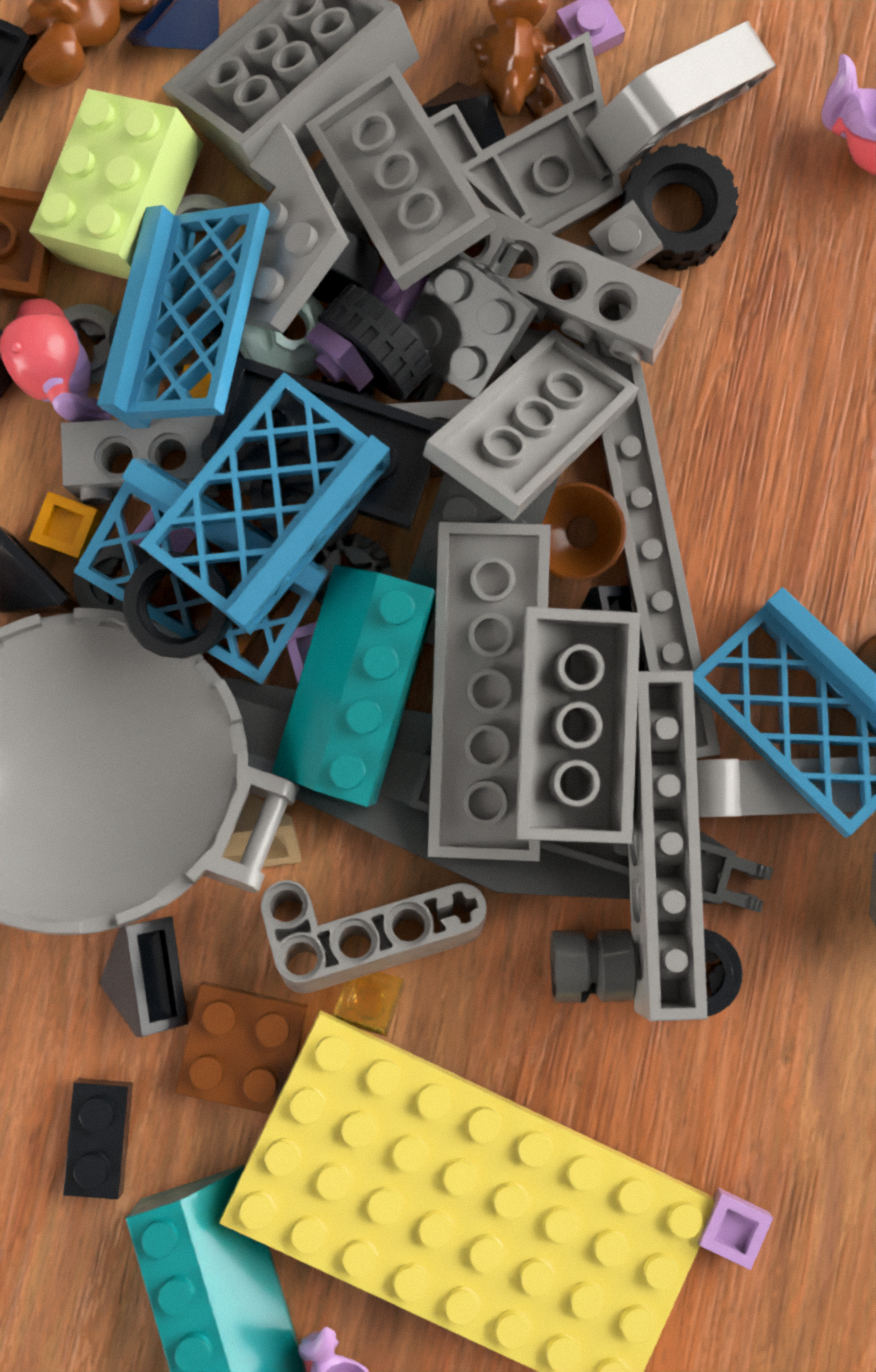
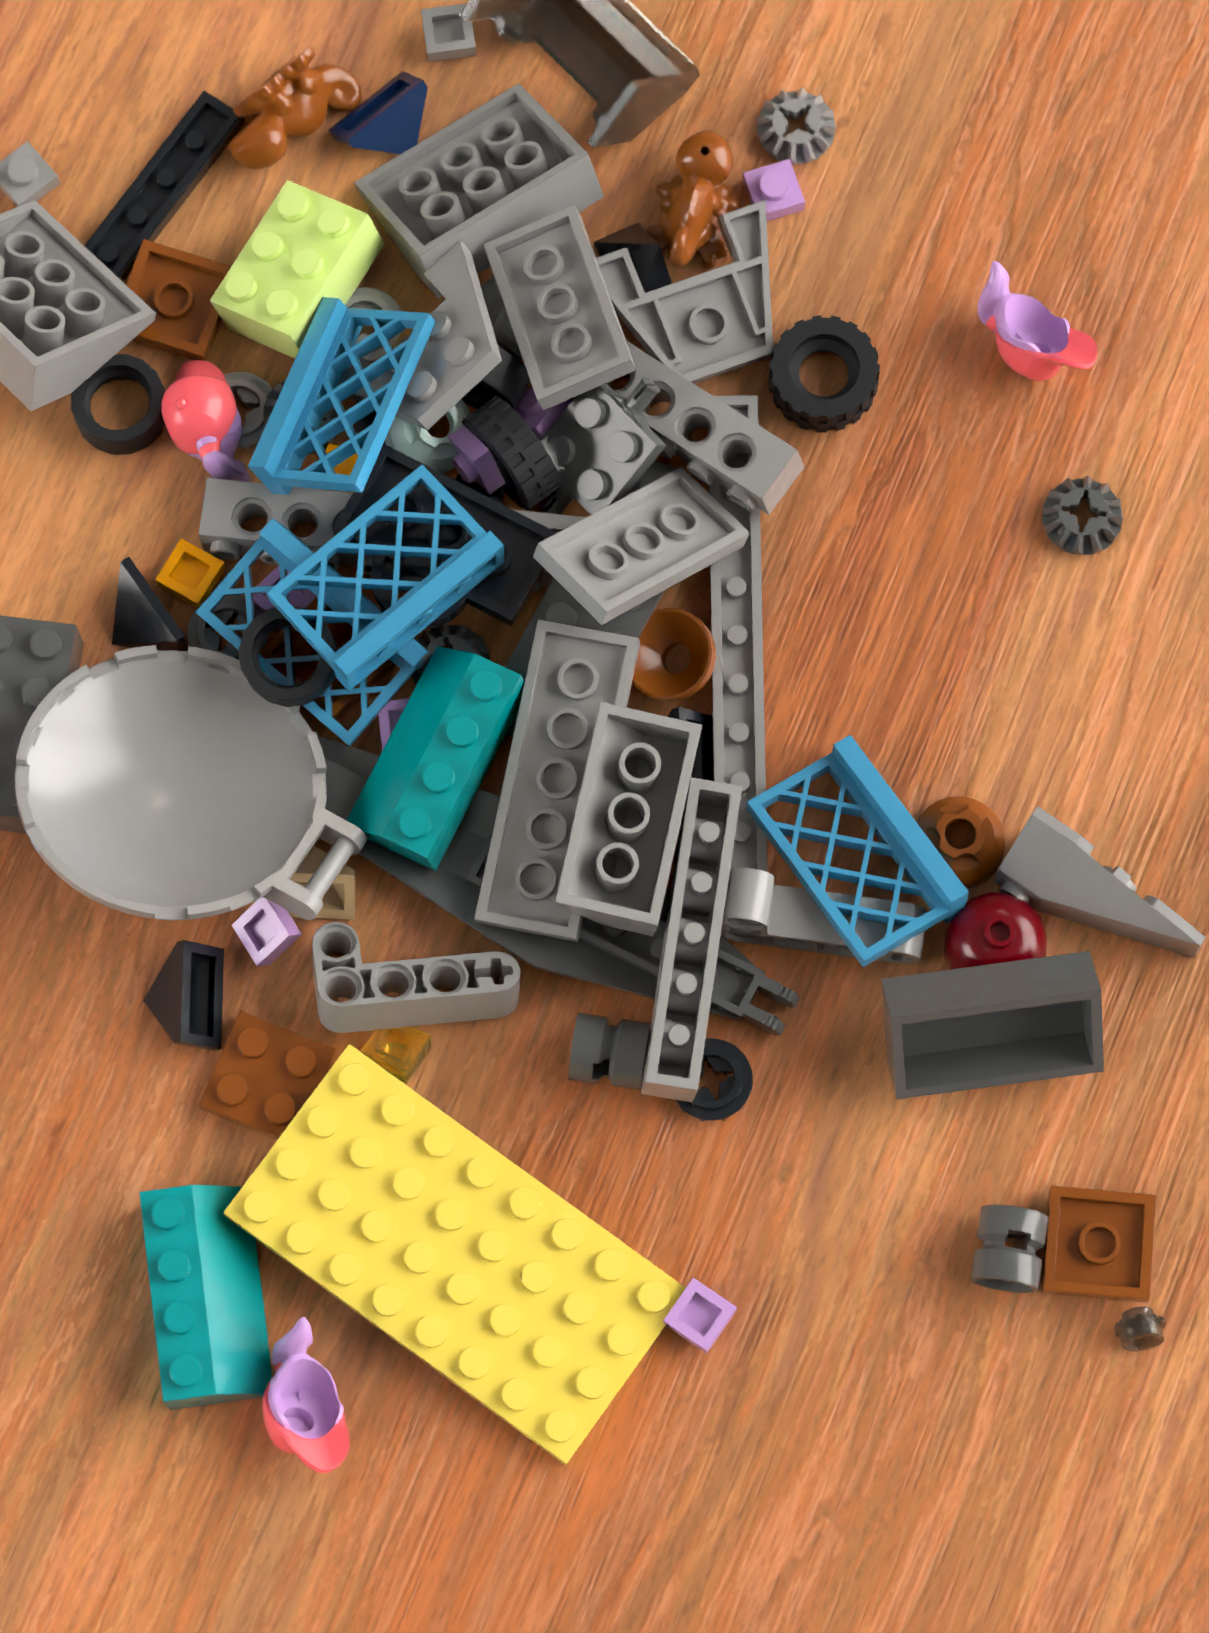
camera: 10 degrees right, 10 degrees down
(98, 1138) = (118, 1137): black plate -> none
(212, 902) = (266, 931): none -> lavender plate
(626, 237) = (764, 395): light grey plate -> none
(678, 94) = (840, 271): beam -> none

